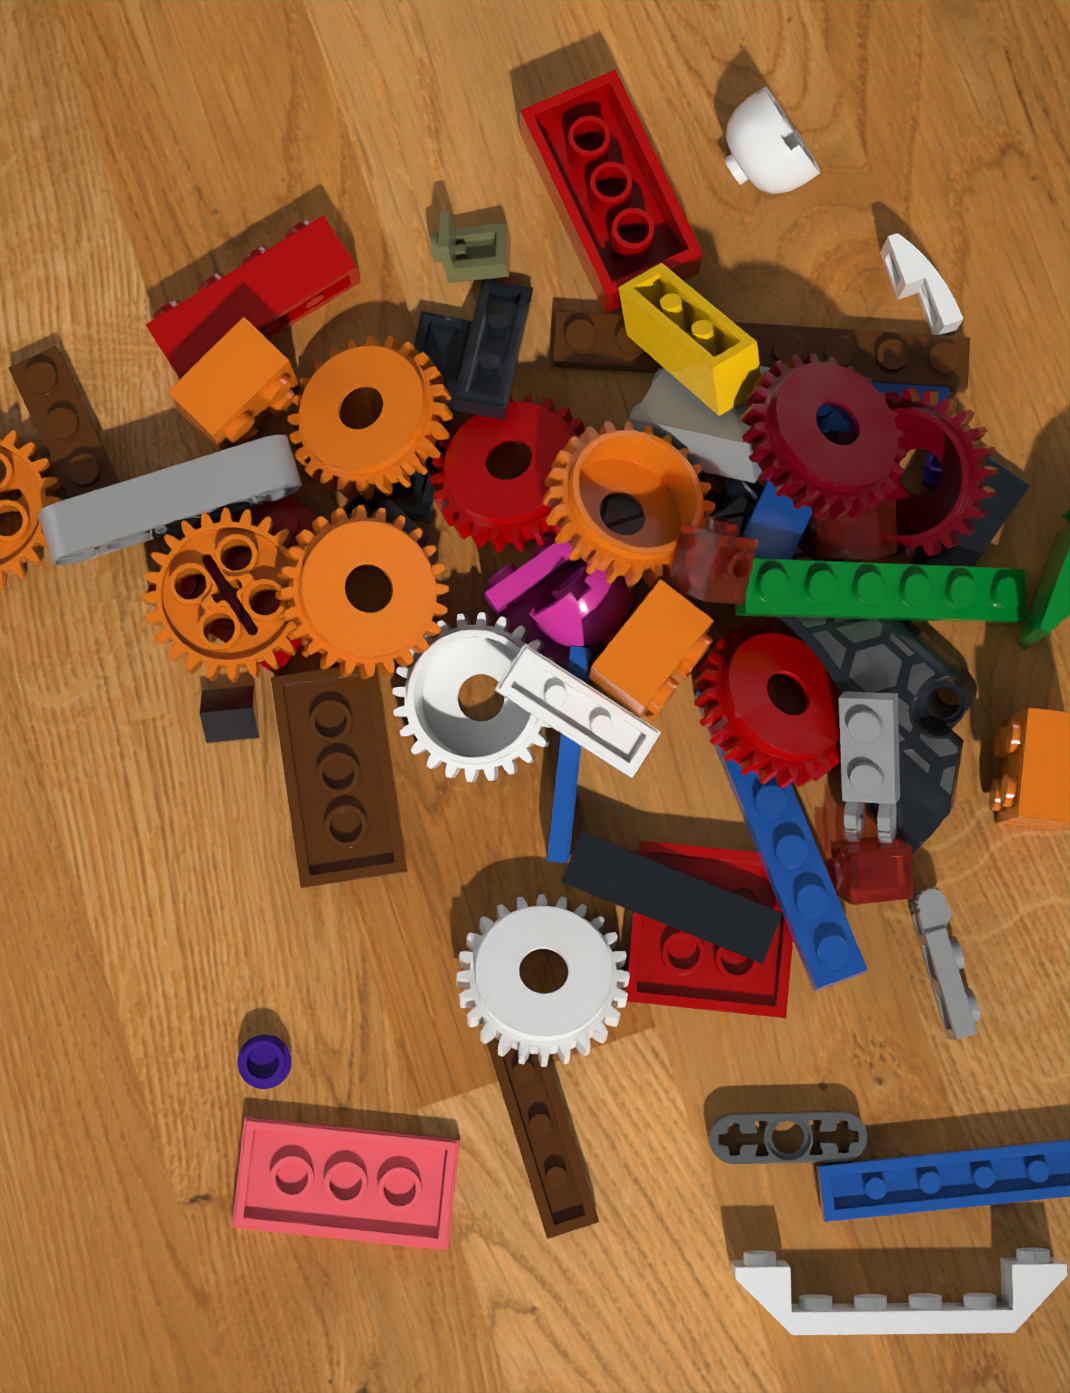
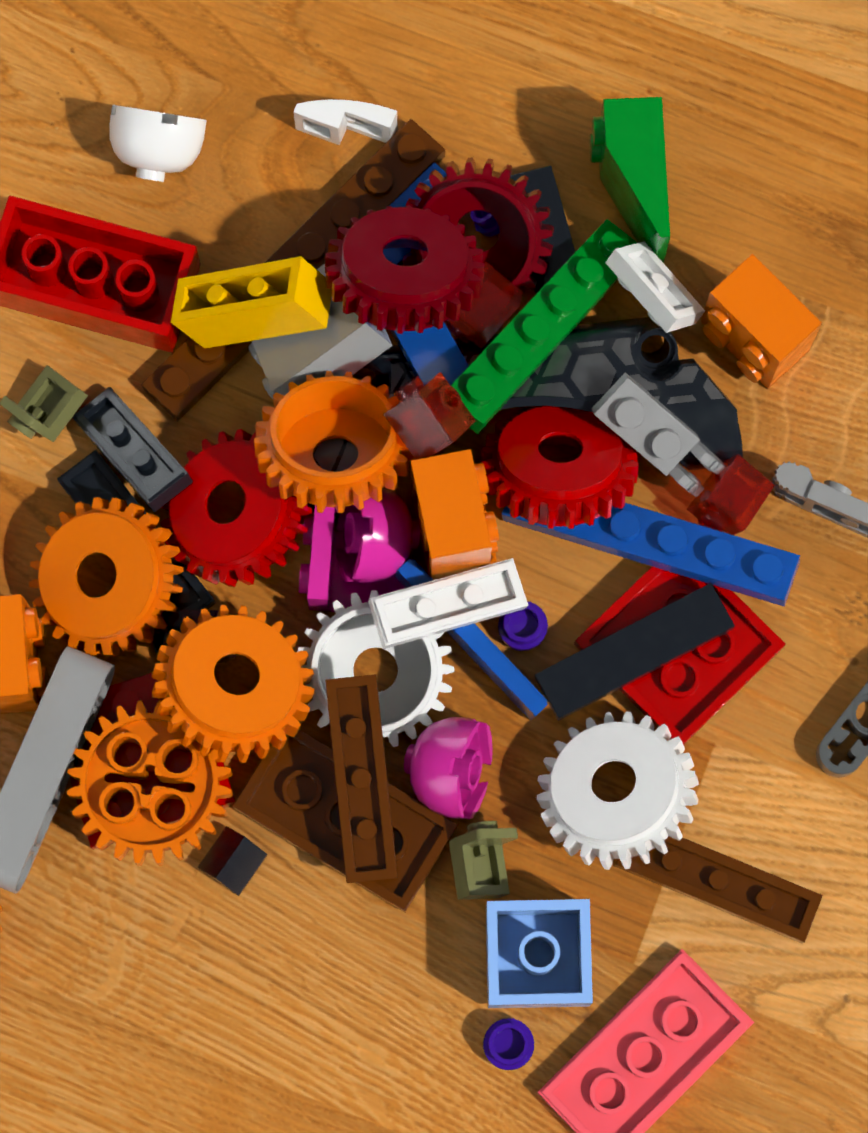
camera: 50 degrees left, 5 degrees down
(352, 1026) = (539, 953): none -> light blue brick
(374, 761) = (361, 778): none -> reddish brown plate
(392, 915) = (480, 861): none -> olive bracket
(448, 823) = (449, 764): none -> dark pink cylinder
(617, 791) = (523, 628): none -> dark purple plate
(996, 657) = (654, 287): none -> white plate

